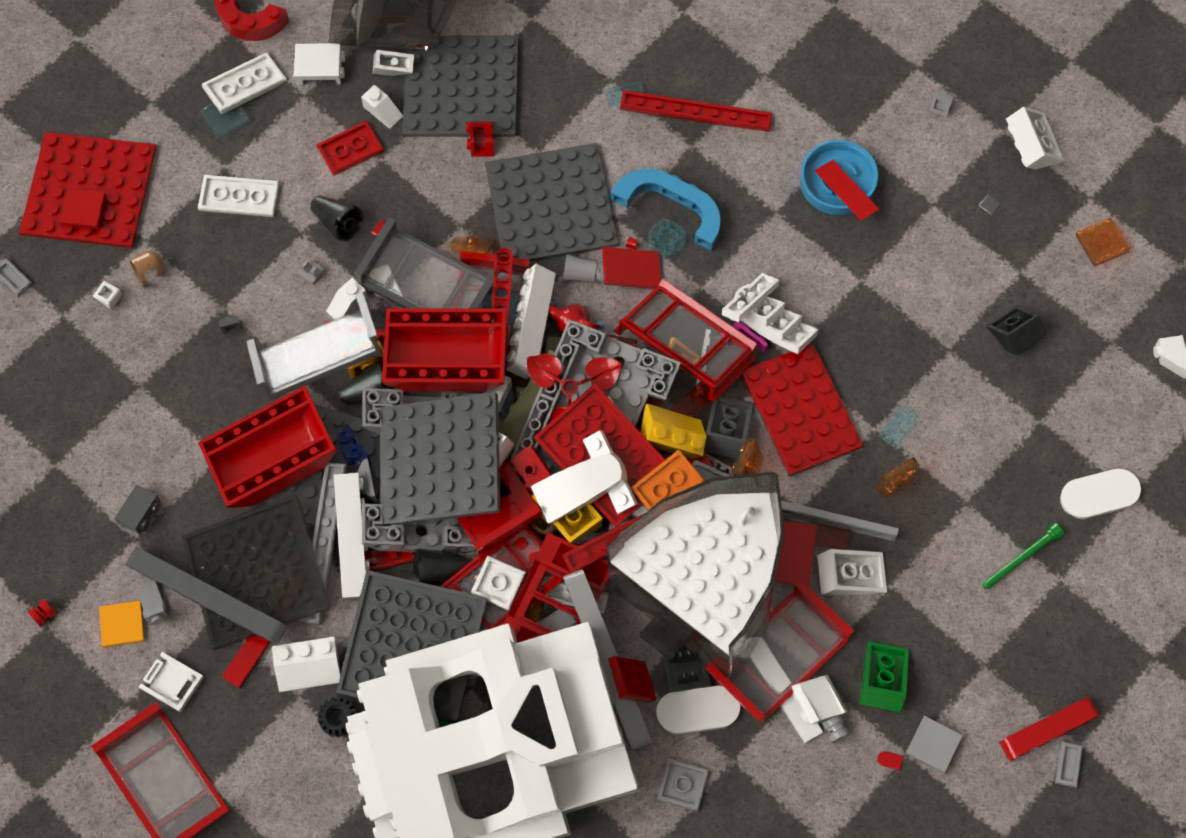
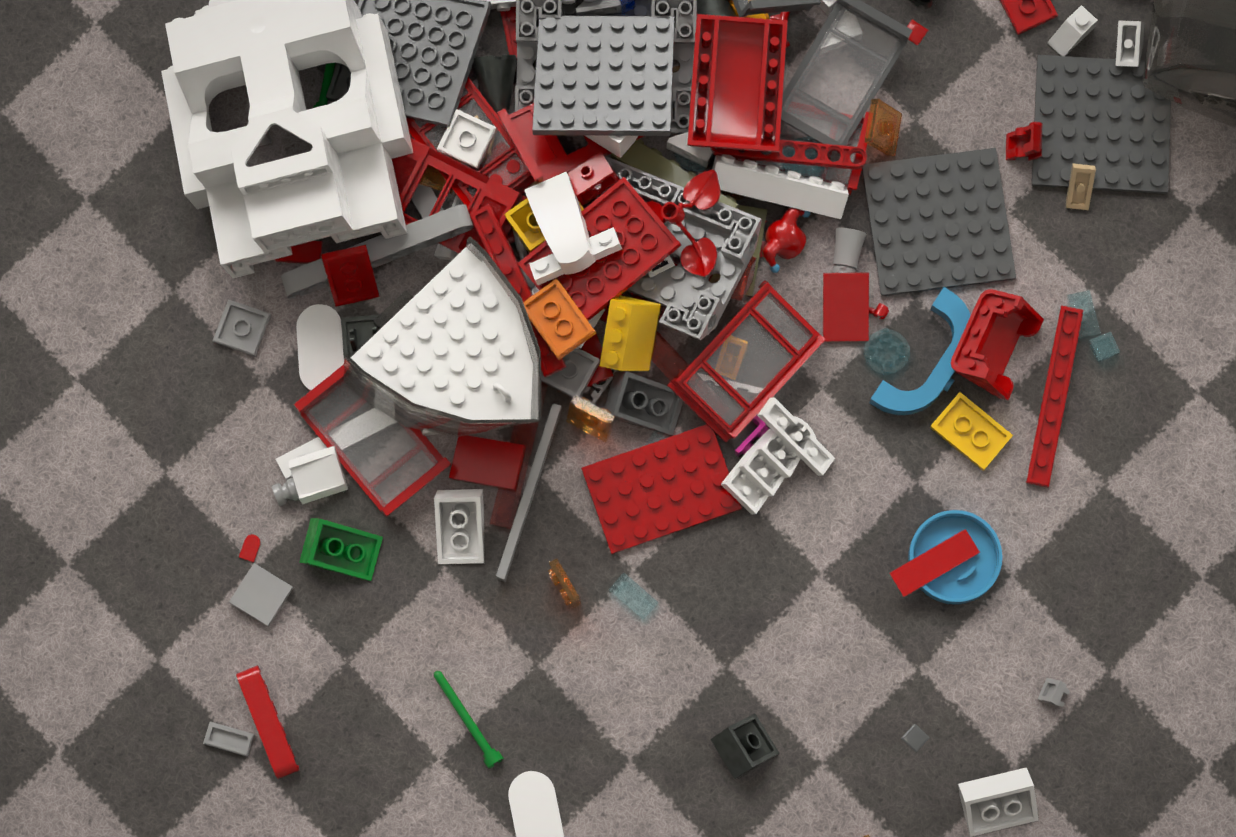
camera: 95 degrees right, 10 degrees up
(518, 95) = (1080, 186): none -> tan plate
(636, 151) = (991, 339): none -> red windscreen
(651, 77) = (1104, 346): none -> clear light blue plate
(730, 171) = (971, 431): none -> yellow plate

